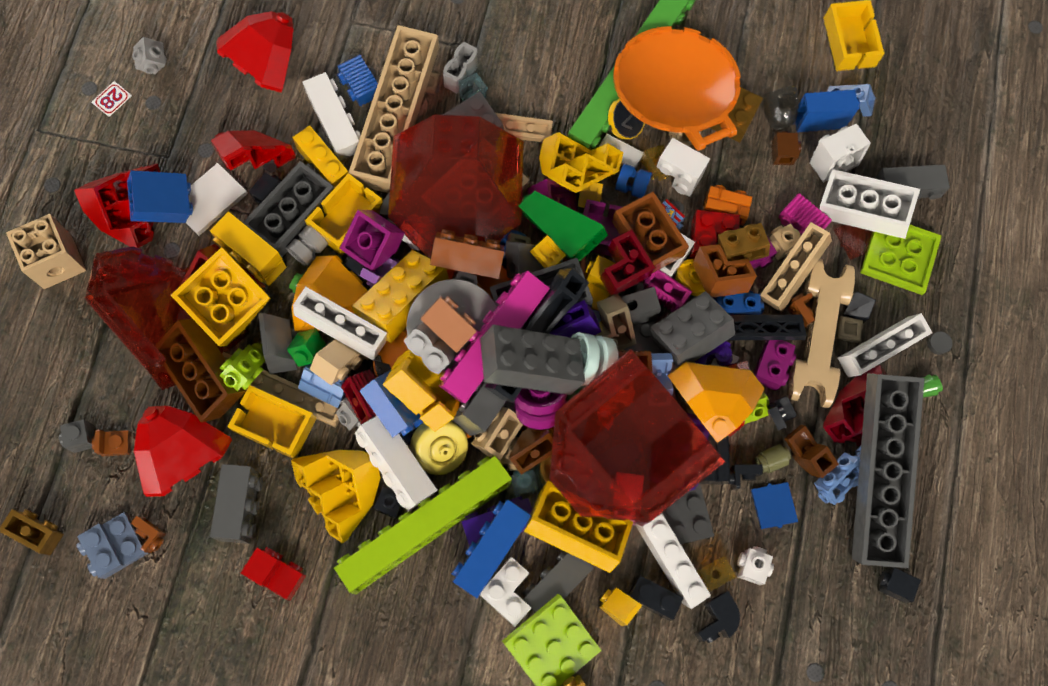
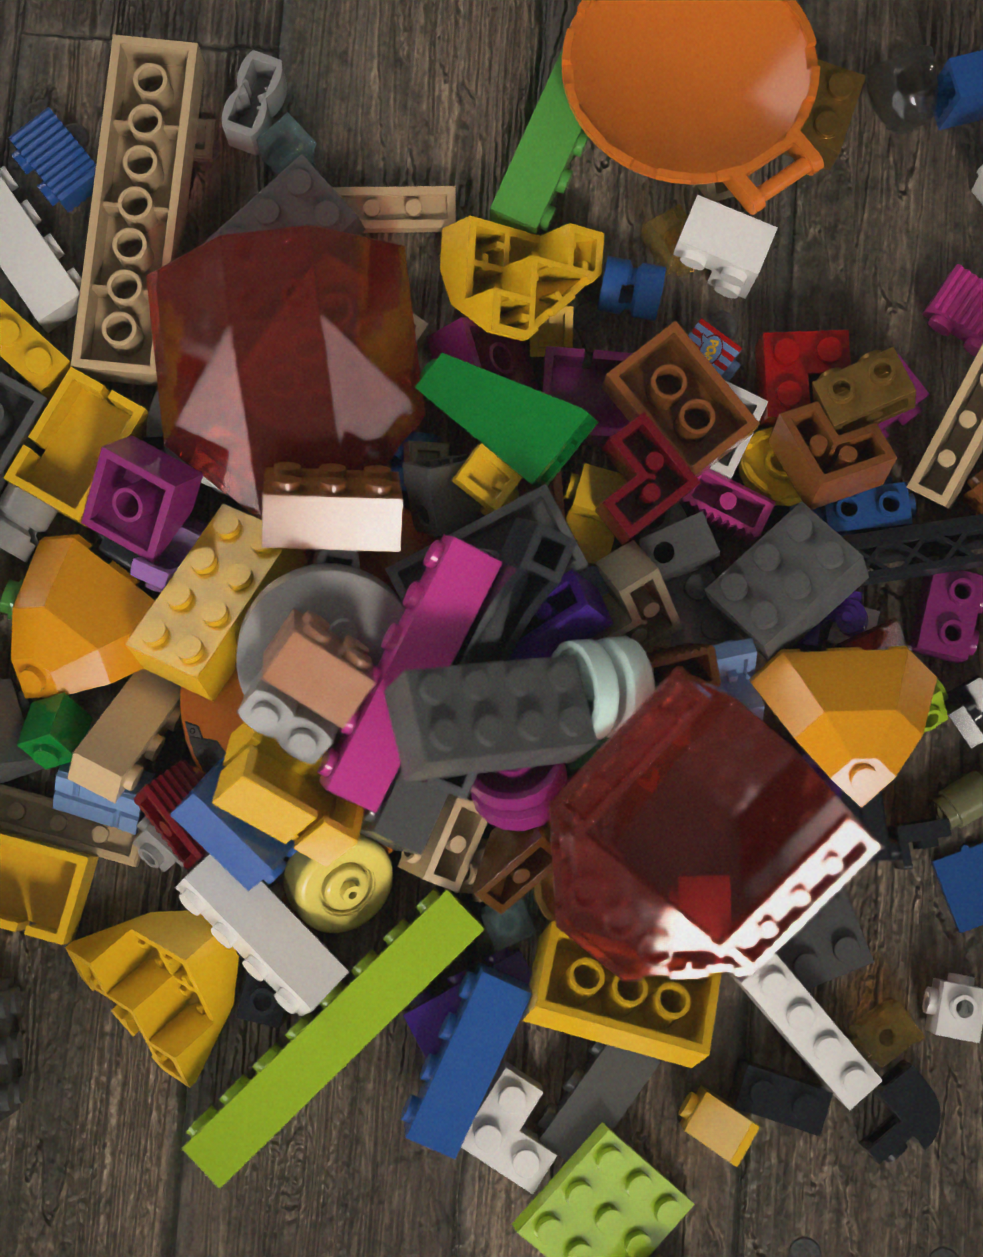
camera: 10 degrees left, 10 degrees up
(271, 572) = (73, 1163): red brick -> none
(339, 323) = (107, 683): white brick -> none
(623, 122) = (592, 170): black tile -> none
(630, 156) = (619, 231): white tile -> none
(726, 201) = (820, 304): orange brick -> none
(784, 240) = (942, 365): tan brick -> none
(785, 148) = (921, 170): reddish brown brick -> none

